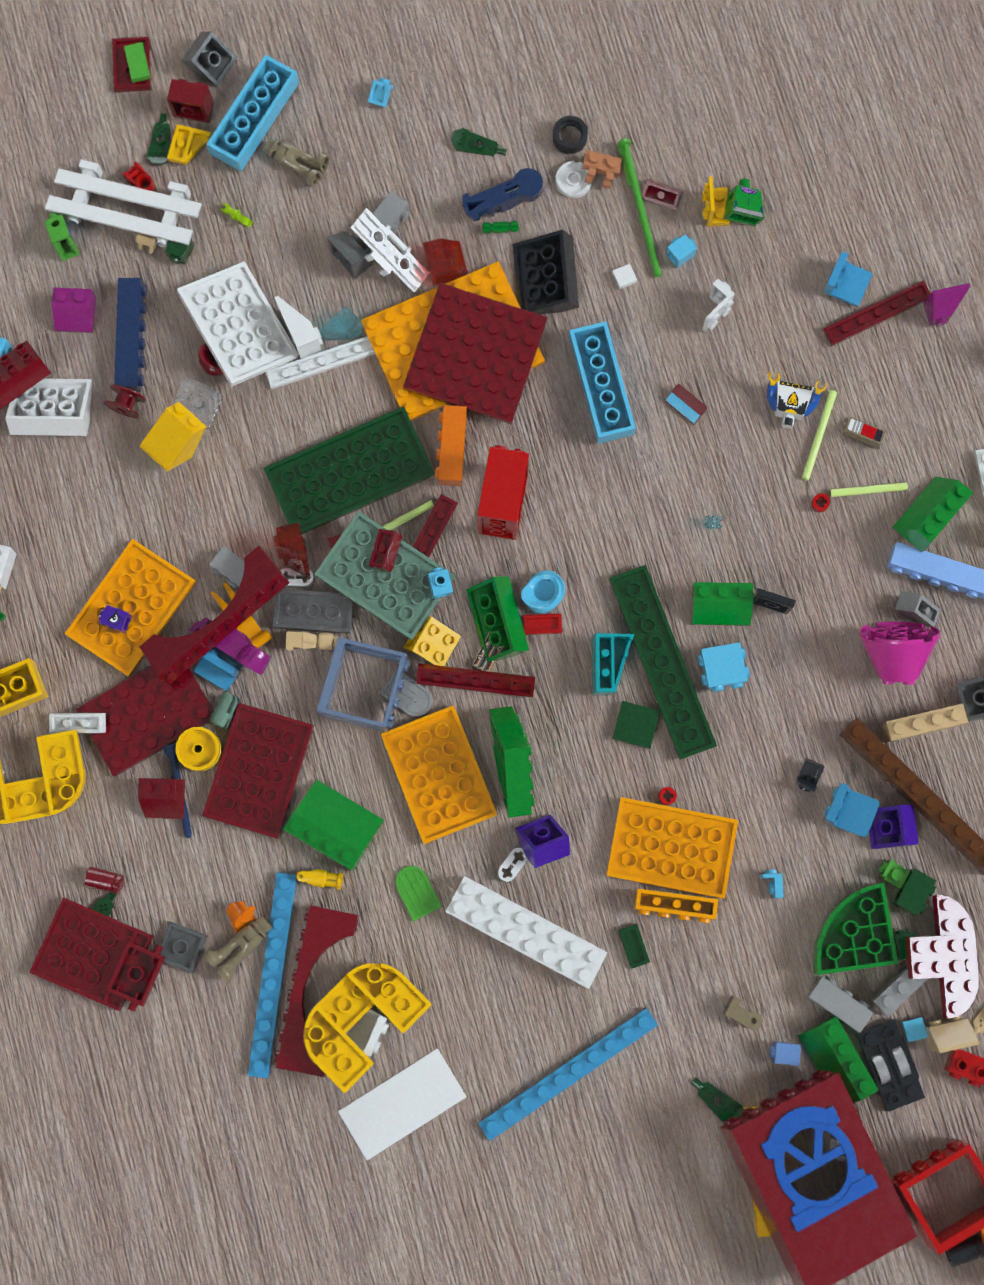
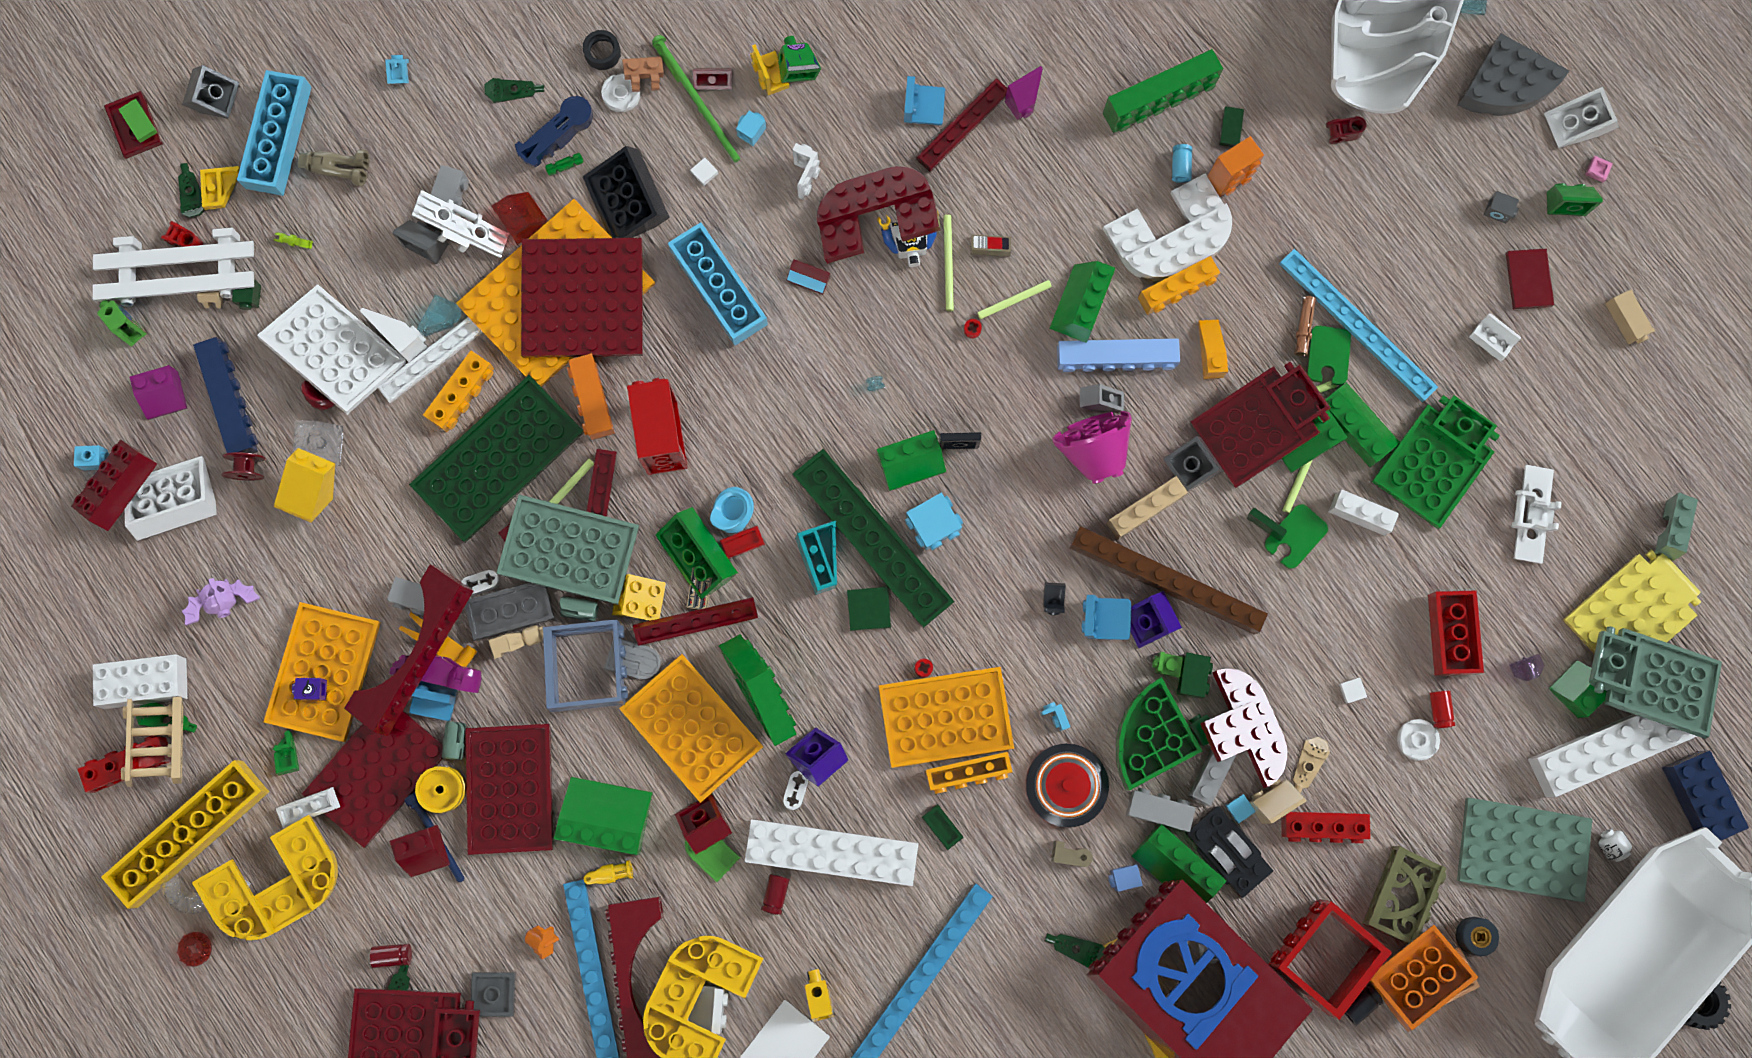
camera: 25 degrees left, 0 degrees up
(62, 511) = (217, 599): none -> lavender helmet
(73, 670) = (286, 755): none -> green slope
(190, 100) = (205, 141): dark red brick -> none
(248, 940) = (557, 962): dark tan piece -> none
(292, 548) = (465, 554): clear red slope -> none
(336, 400) = (459, 391): none -> light orange brick
(375, 632) = (578, 608): none -> sand green arm
(385, 550) = (559, 524): dark red slope -> none
(419, 864) = (703, 824): none -> dark red slope
(440, 583) = (625, 537): medium azure brick -> none
(462, 951) = (775, 894): none -> dark red piece
(467, 1065) = (821, 1006): none -> yellow torso
(761, 950) = (1067, 785): none -> dish
(790, 347) = (870, 192): none -> dark red plate

